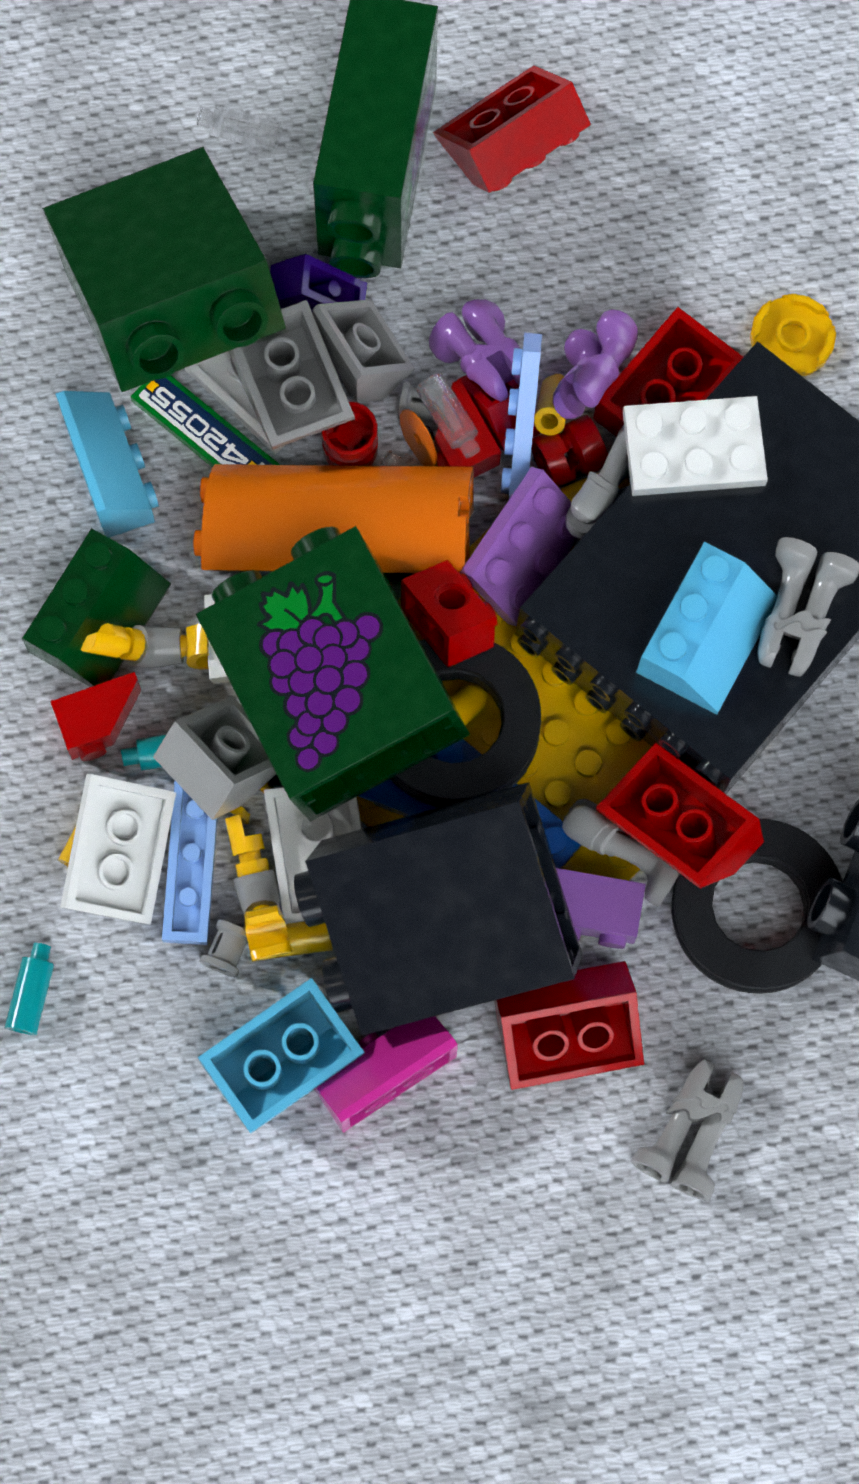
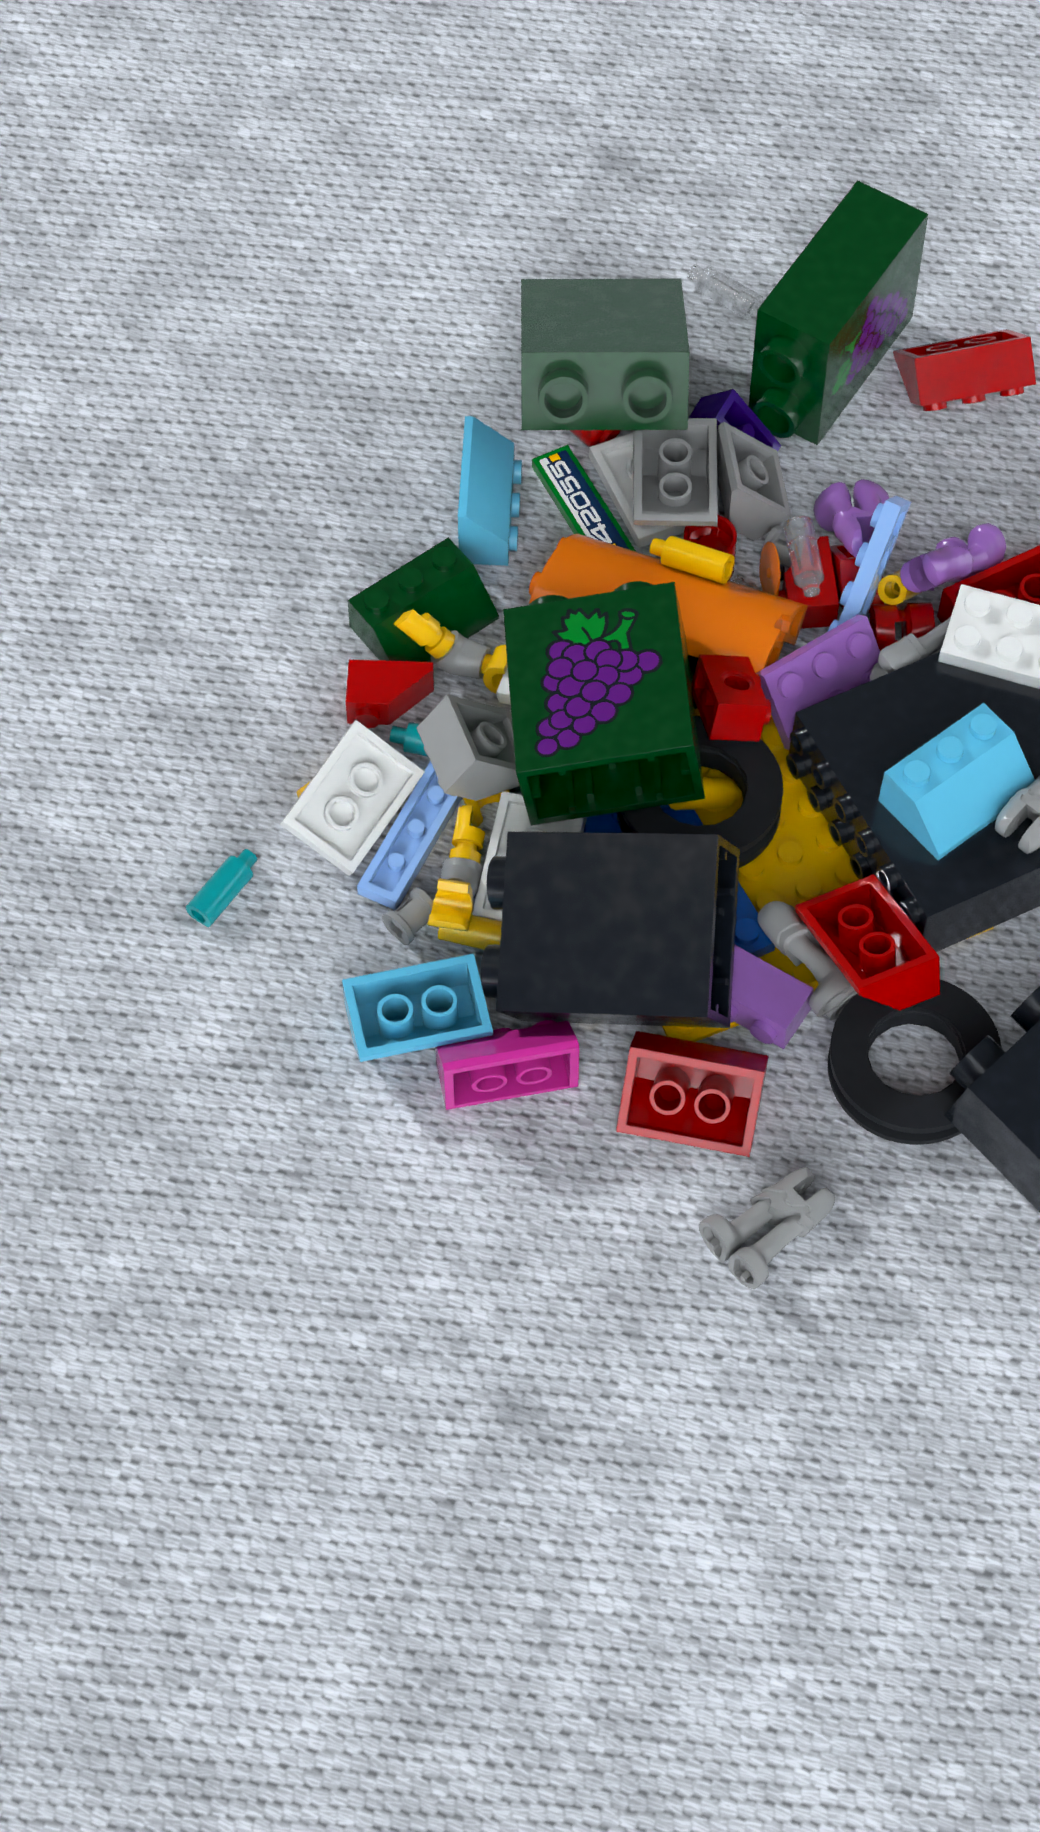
camera: 25 degrees right, 15 degrees down
(345, 463) = (694, 558): none -> yellow cylinder

